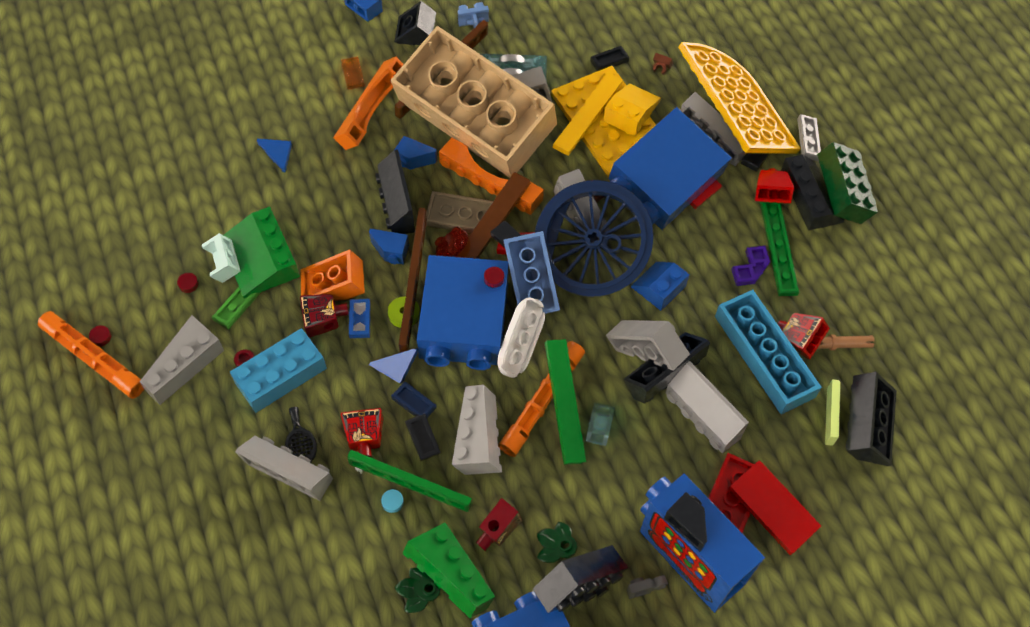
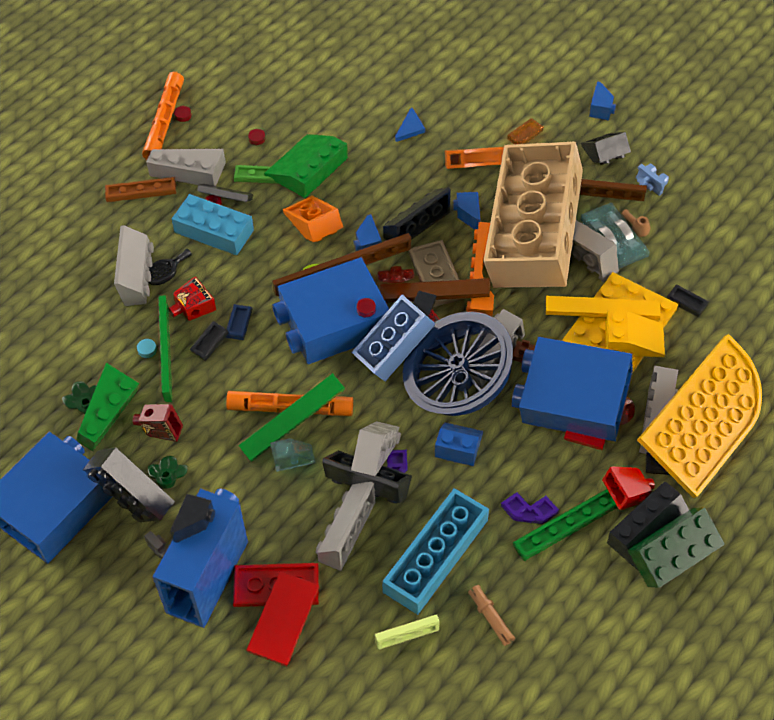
camera: 65 degrees right, 5 degrees down
(173, 421) = (140, 189): none -> dark orange tile
(223, 256) = (288, 143): light aqua panel -> none
(243, 341) = (225, 192): none -> tile
(321, 313) = (276, 225): dark red torso -> none
(359, 318) = (289, 251): blue piece -> none
(396, 365) = (260, 294): tile -> none
(477, 434) = (230, 370): light grey wedge -> none
(514, 47) = (640, 226): none -> medium nougat bar
(521, 337) = (329, 356): white tile -> none
(663, 61) = (712, 338): copper tile -> none
(804, 332) = (470, 573): red torso -> none
(809, 136) = (719, 497): light grey tile -> none
(871, 419) = (420, 670): black slope -> none

